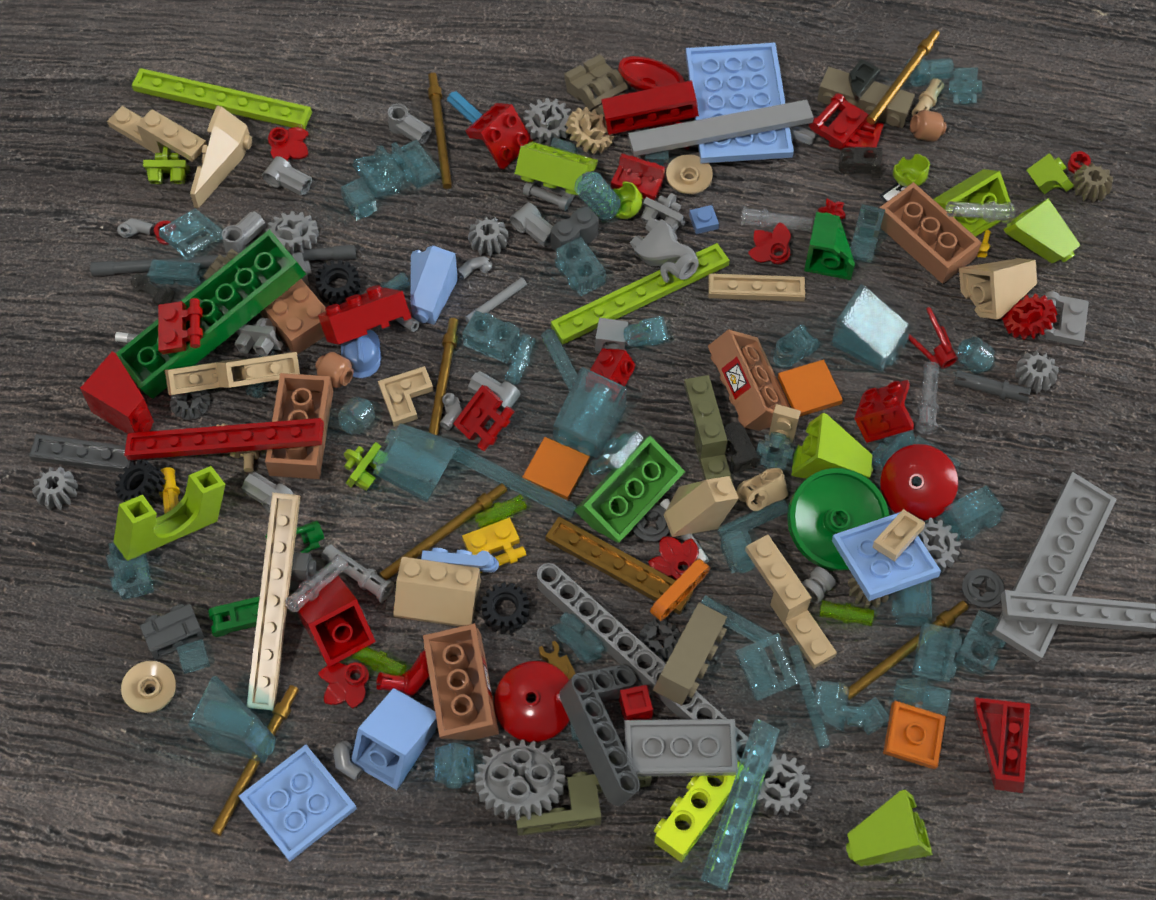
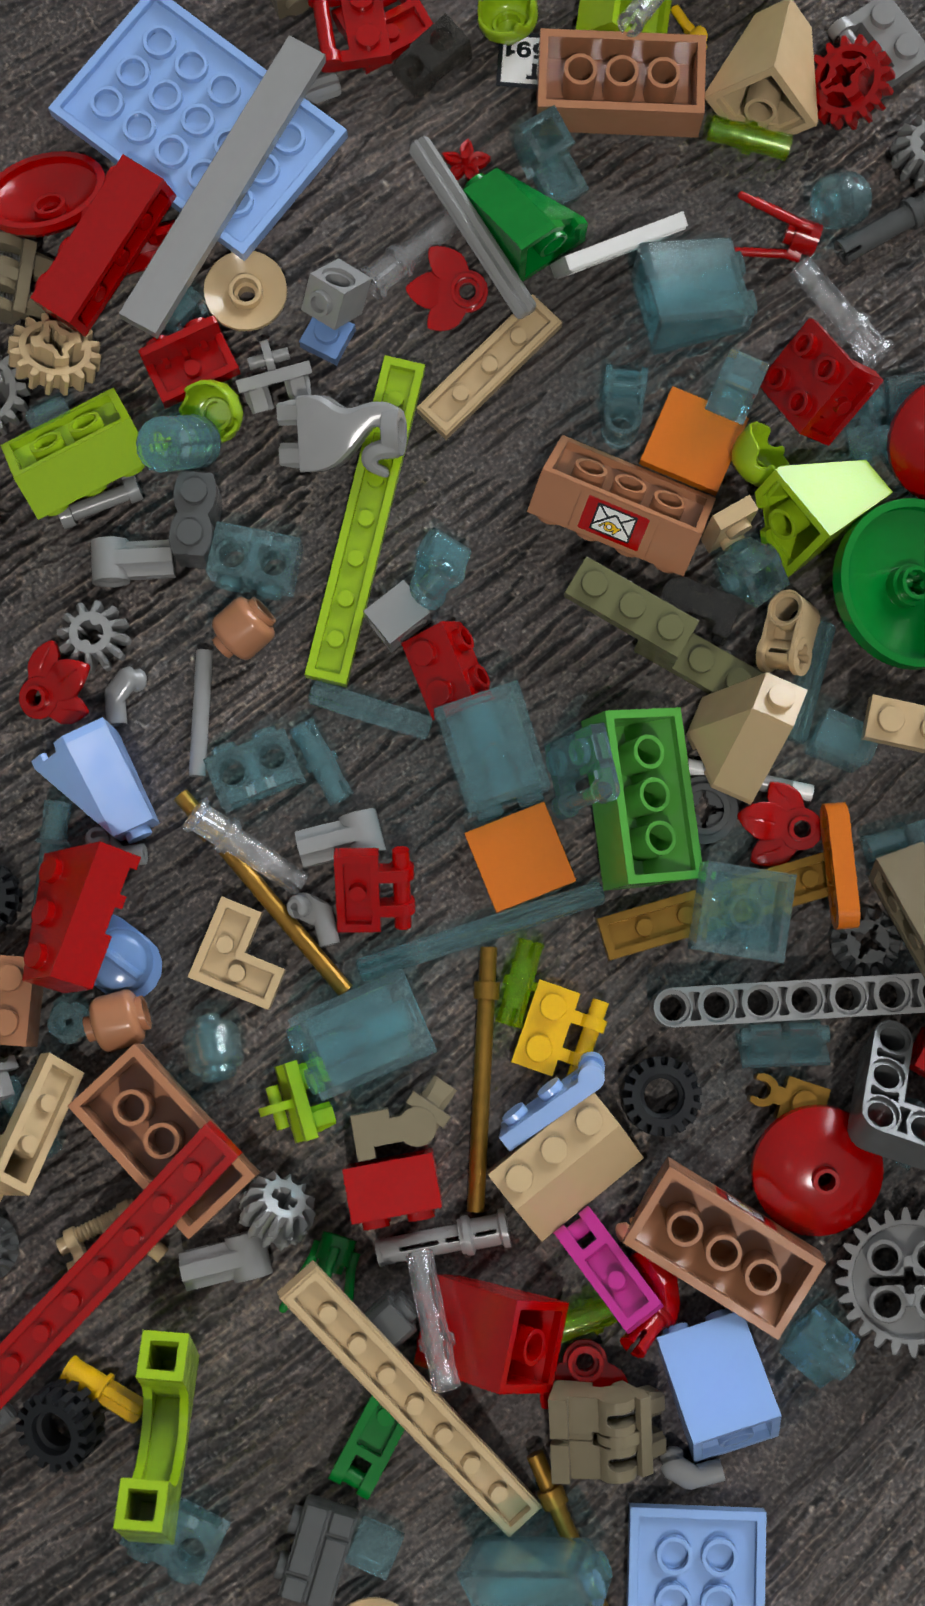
camera: 50 degrees left, 20 degrees up
(311, 489) = (277, 1210): none -> light grey gear
(312, 351) = (57, 1022): none -> clear light blue plate
(330, 697) = (624, 1429): none -> dark tan hips
(361, 526) = (392, 1188): none -> red brick
(398, 511) = (414, 1125): none -> dark tan hips
(405, 645) = (609, 1271): none -> dark pink plate
(452, 346) = (229, 837): none -> clear pin
(453, 236) = (57, 683): none -> red plate
(547, 284) = (243, 628): none -> nougat head
(617, 561) = (742, 911): none -> clear light blue brick
(722, 204) = (336, 293): none -> light grey brick
(804, 229) = (472, 227): none -> light grey axle
(832, 406) = (754, 455): none -> lime hair
(849, 381) = (737, 386): none -> clear light blue brick
(850, 282) = (618, 245): none -> white tile
(964, 301) = (749, 137): none -> clear neon green pin

